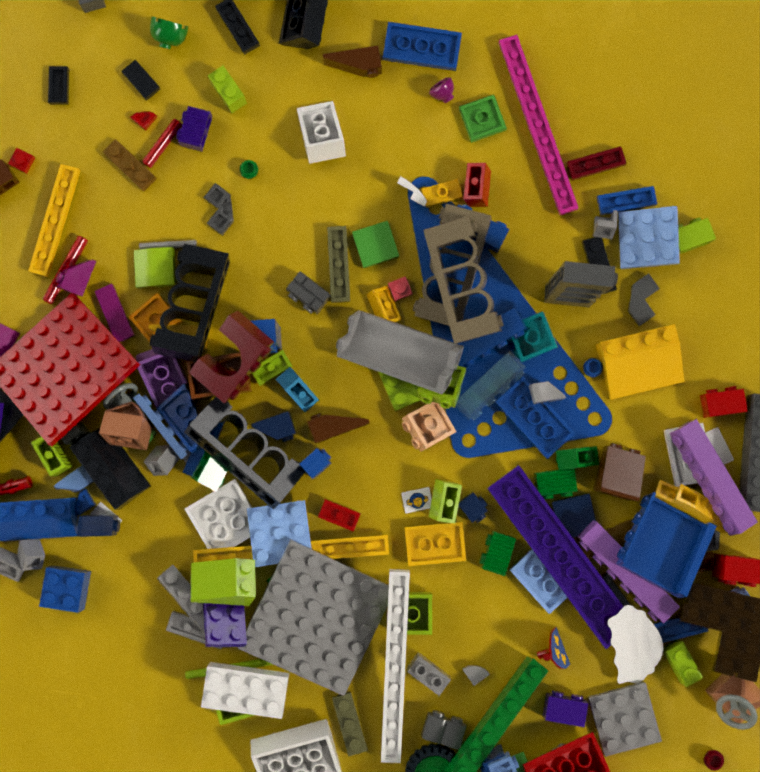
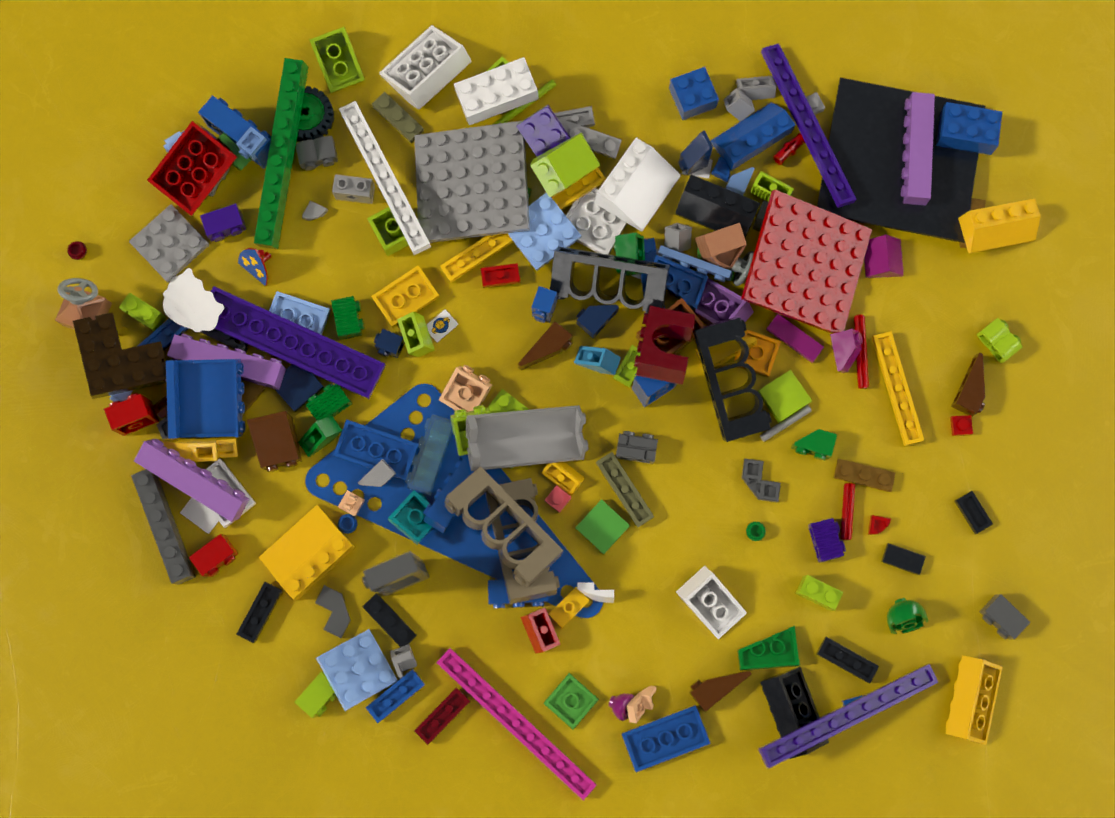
camera: 150 degrees right, 5 degrees down
(151, 211) = (818, 443): none -> green slope
(168, 528) = (637, 185): none -> white slope
(295, 66) = (773, 652): none -> green wing
(424, 85) = (639, 703): none -> light nougat slope
(580, 383) = (351, 503): none -> light nougat tile
(707, 332) = (259, 612): none -> black plate

